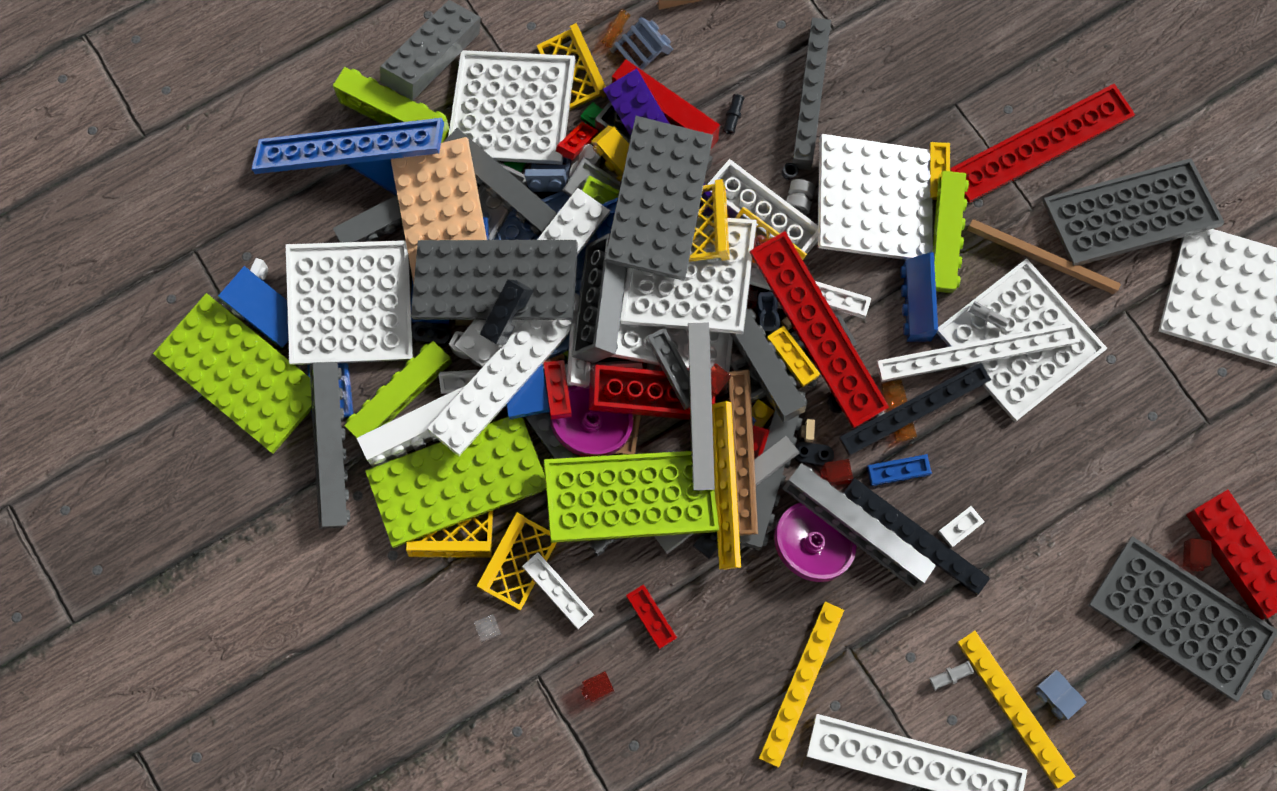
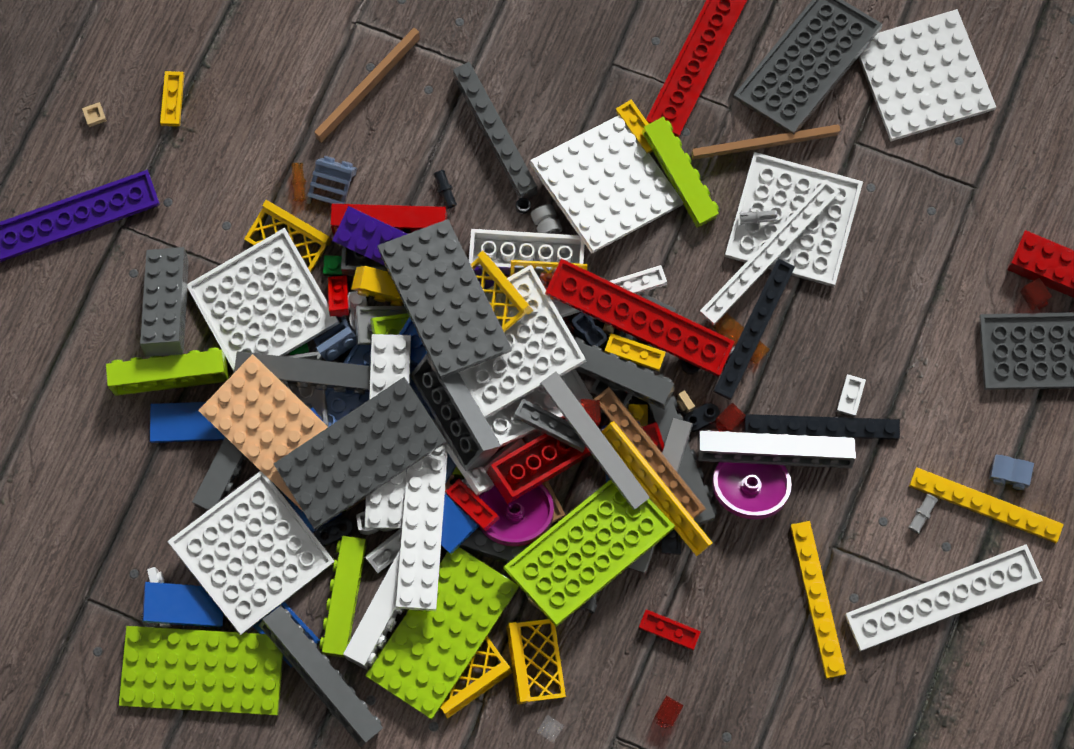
camera: 35 degrees left, 0 degrees up
(348, 146) = (156, 427): blue plate -> none
(511, 299) = (390, 469): black arch -> none
(557, 590) = (584, 661): white plate -> none
(899, 470) = (774, 384): blue tile -> none
(920, 298) = (696, 239): blue slope -> none

